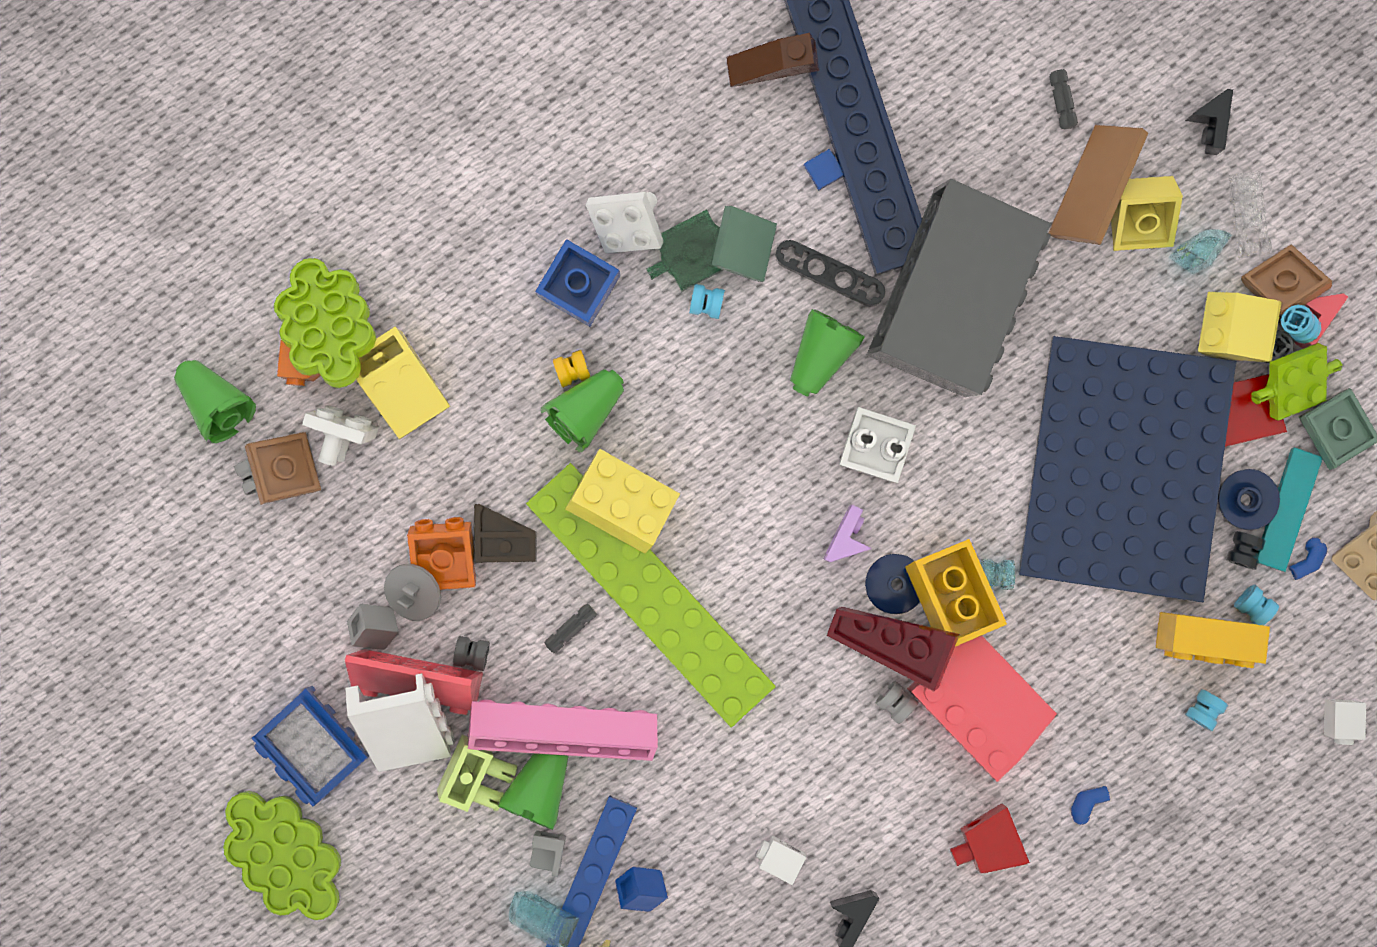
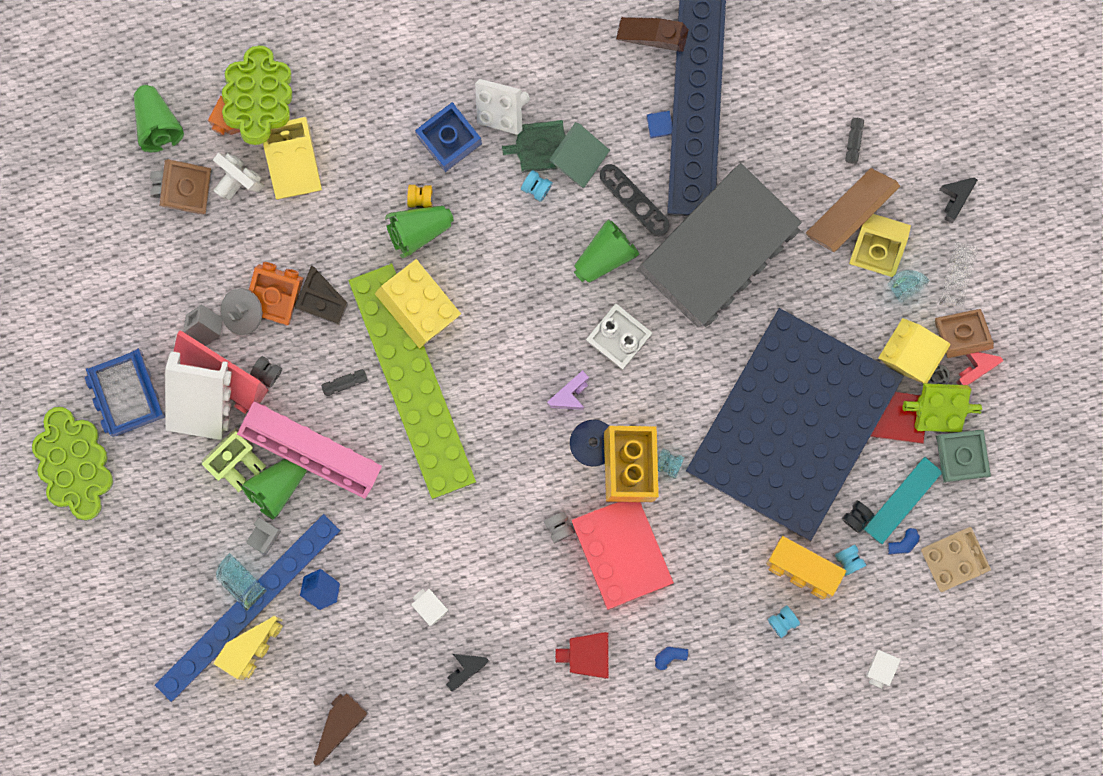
camera: 30 degrees right, 5 degrees down
(902, 646) = (573, 481): dark red wing -> none
(1263, 499) = (878, 468): dark blue dish -> none
(1306, 328) = (958, 365): medium azure wheel -> none

